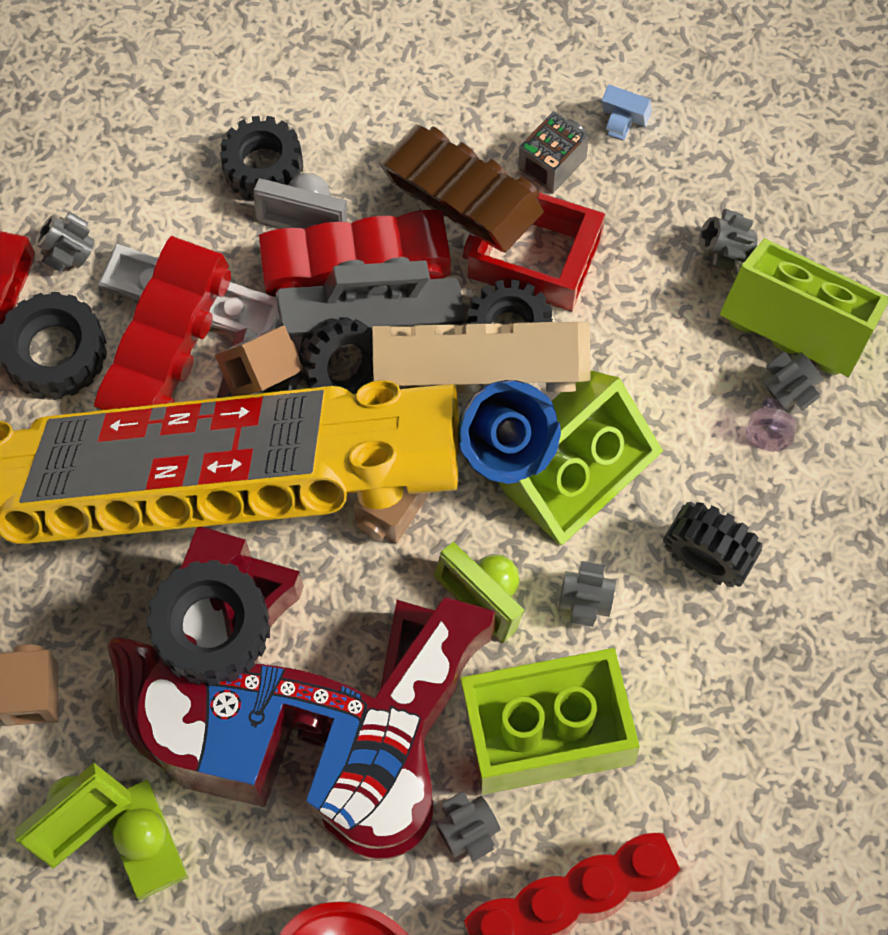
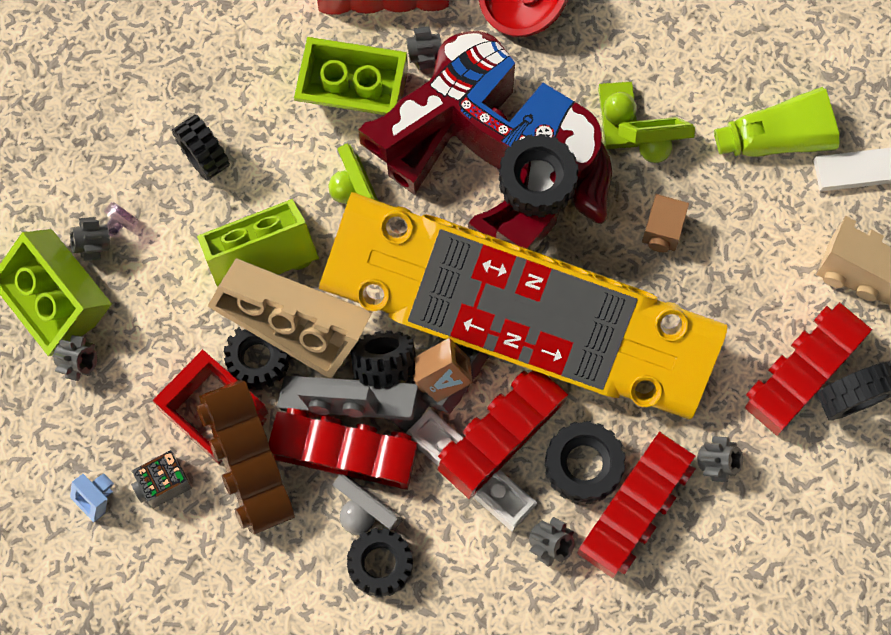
camera: 160 degrees left, 5 degrees up
(508, 431) = (301, 240): blue cone -> none
(587, 593) = (292, 153): dark grey gear -> none

